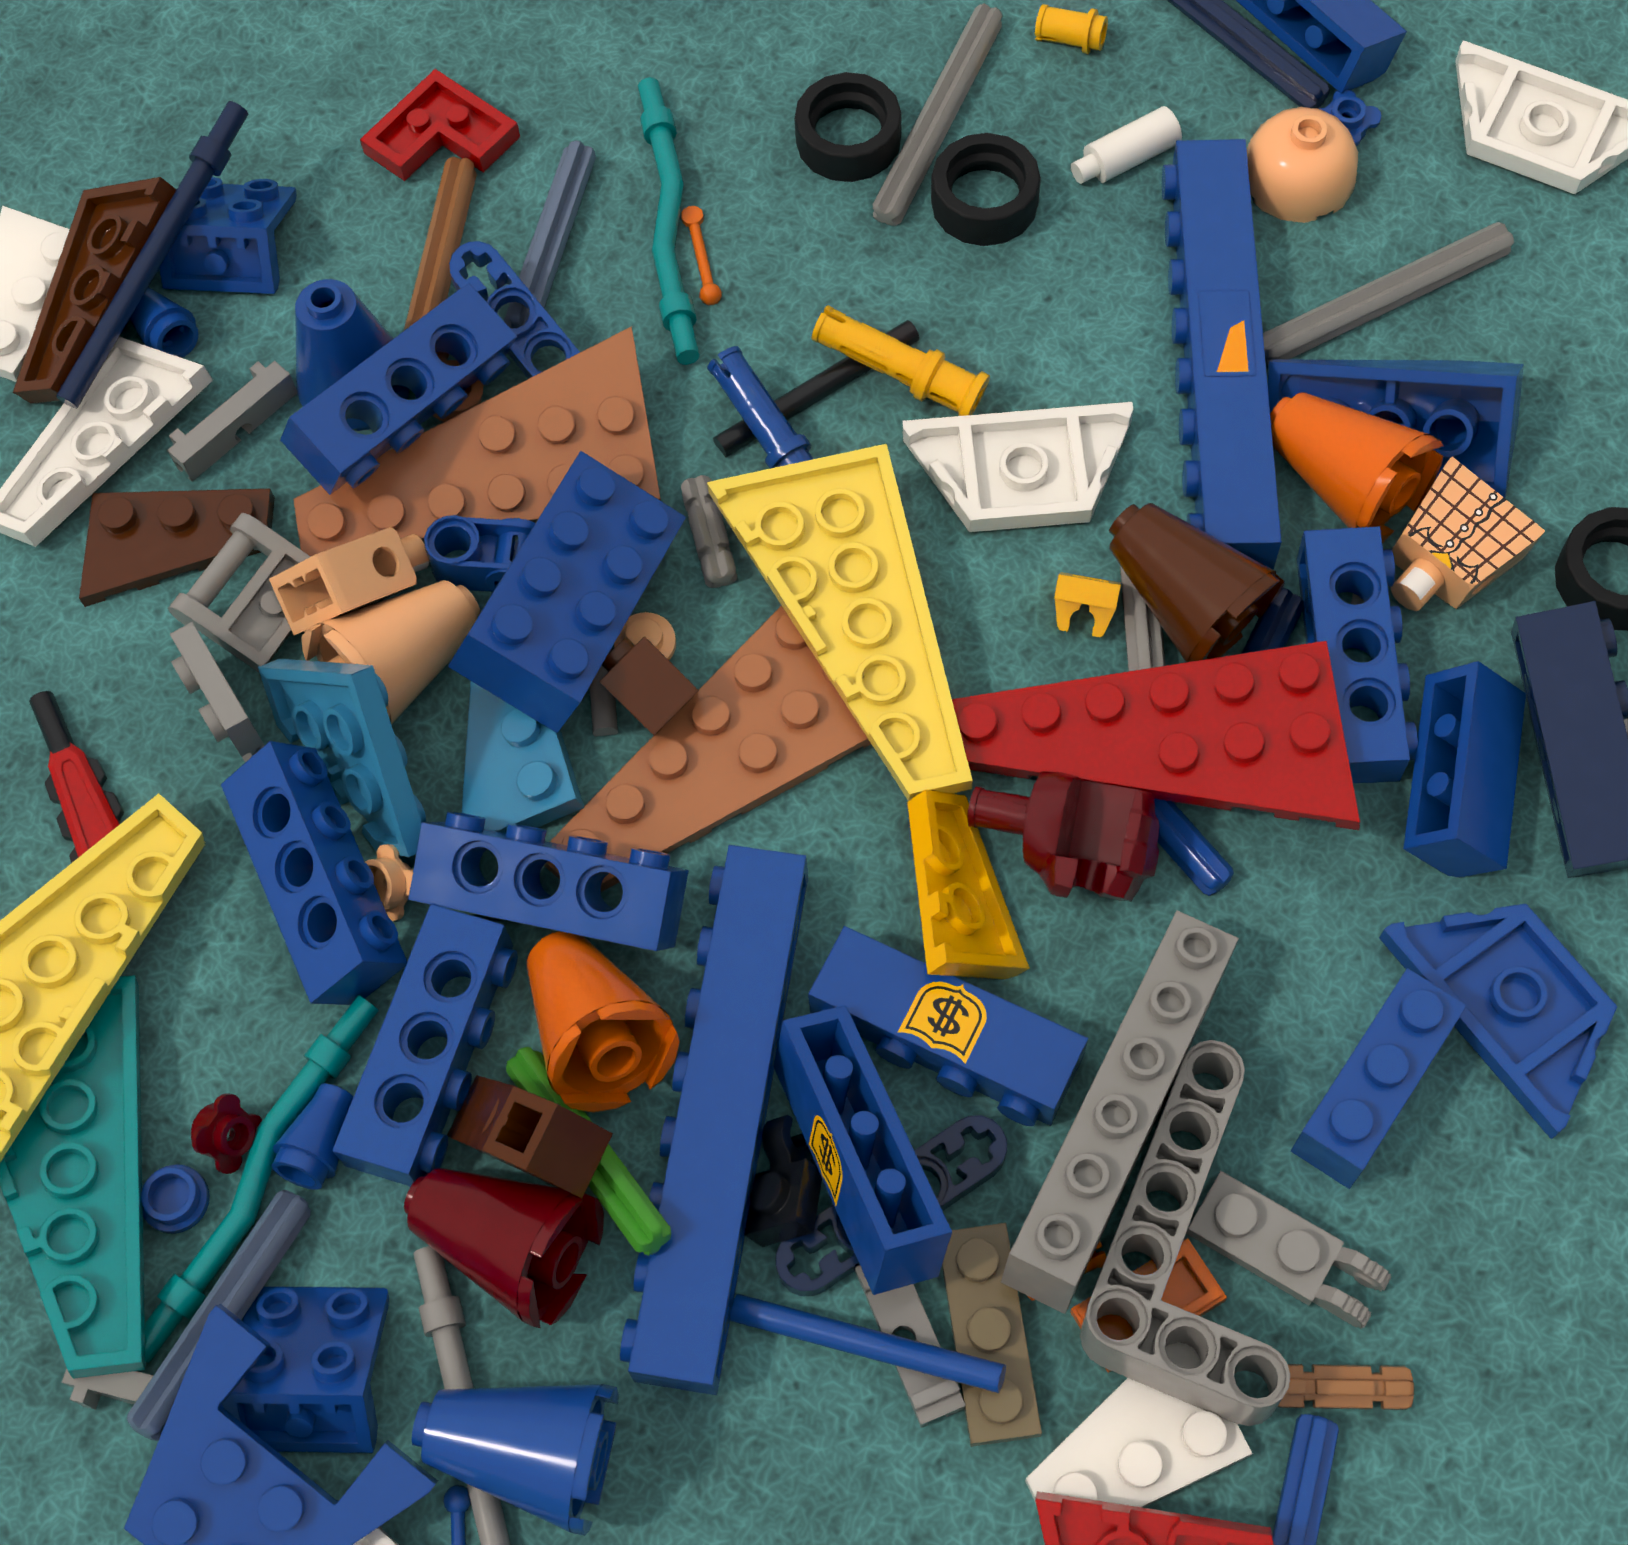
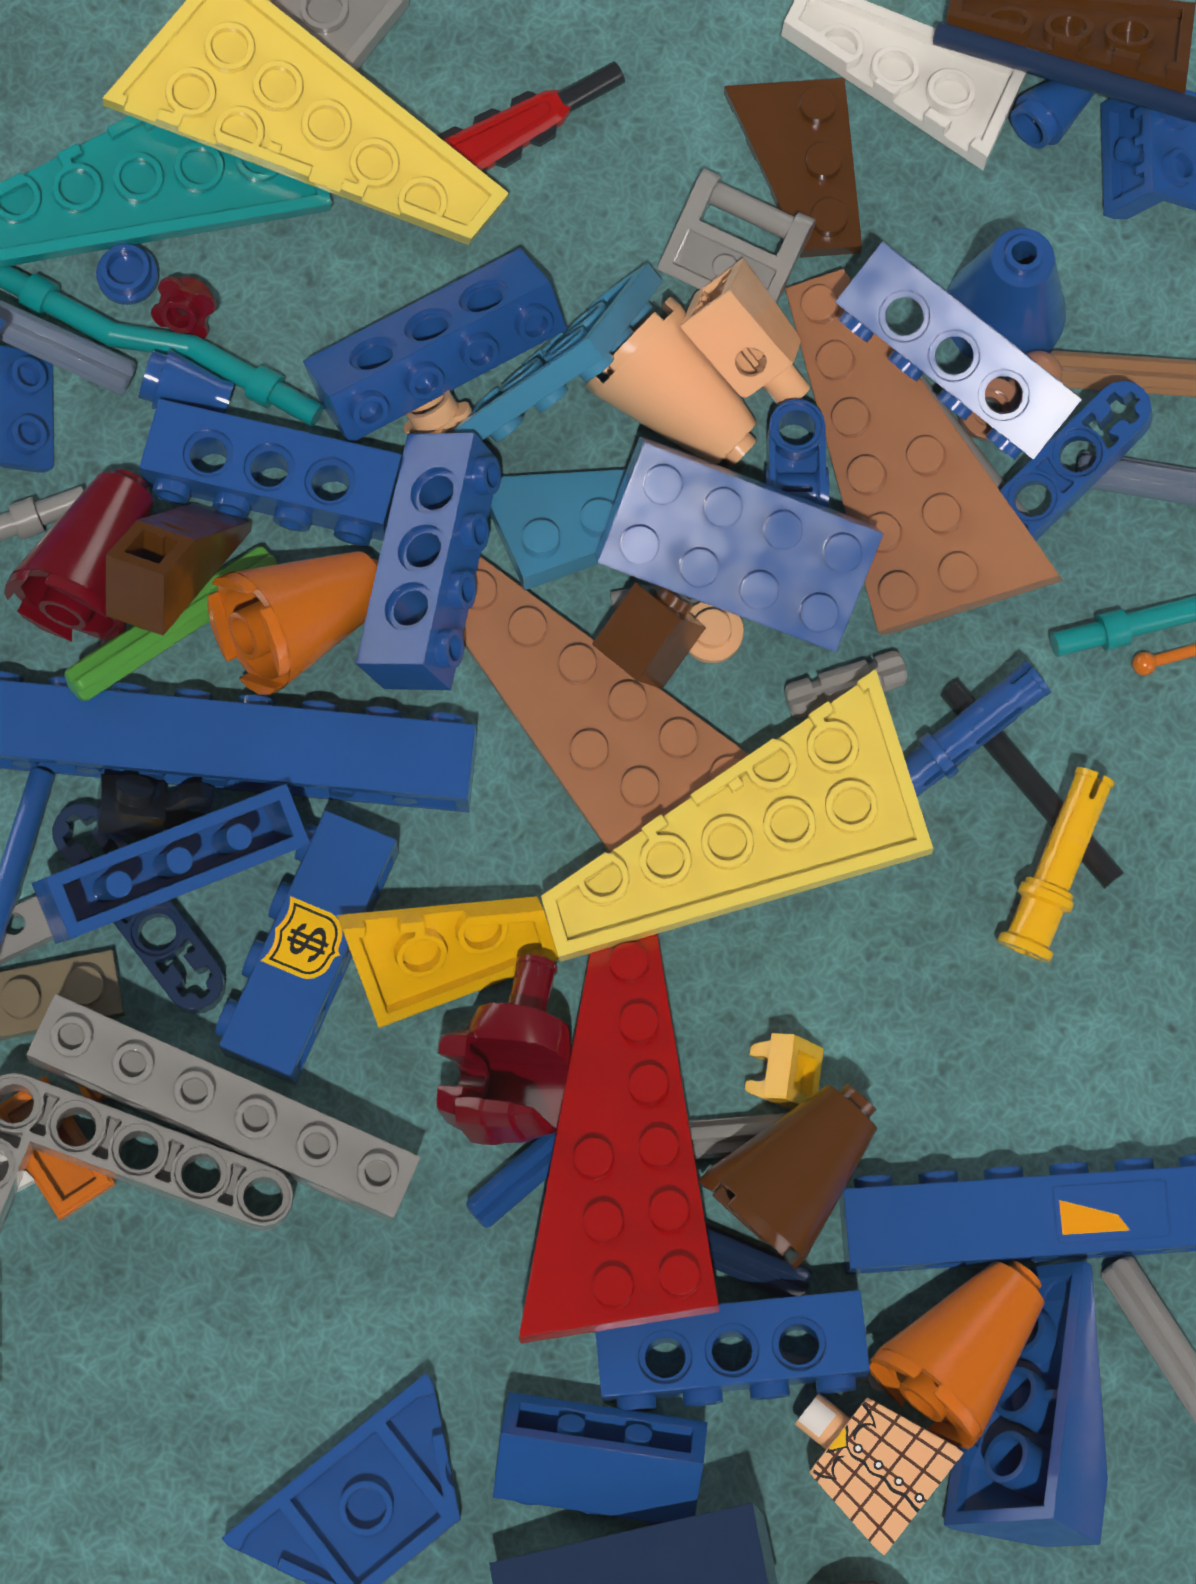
camera: 80 degrees right, 10 degrees up
(224, 712) = (602, 240): light grey plate -> none
(245, 409) = (927, 188): light grey piece -> none
(1021, 464) = (947, 1004): white wing -> none
(1283, 1248) = (109, 1272): light grey hinge -> none
(1378, 1078) = (268, 1361): blue brick -> none

